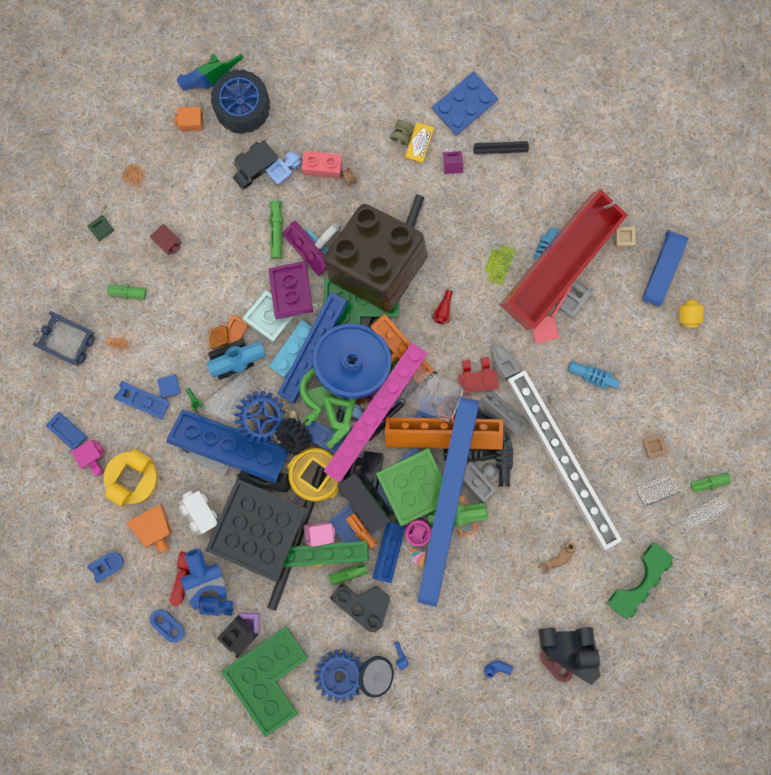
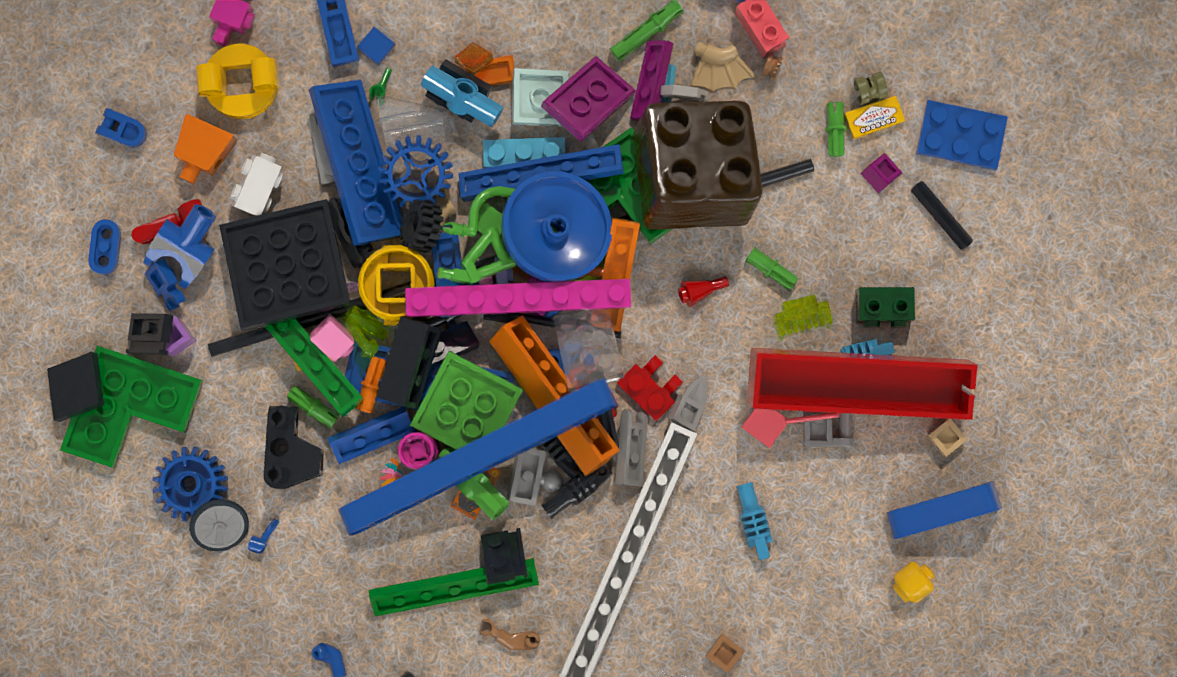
camera: 55 degrees right, 0 degrees up
(236, 701) = (75, 387): none -> black tile
(323, 512) = (362, 323): none -> clear neon green plant
(327, 206) = (719, 67): none -> tan arm
(410, 168) = (835, 129): none -> bright green axle
(461, 261) = (771, 269): none -> bright green axle
(508, 569) = (444, 590): none -> green plate
(512, 528) = (503, 556): none -> black plate
(528, 215) = (885, 305): none -> dark green brick

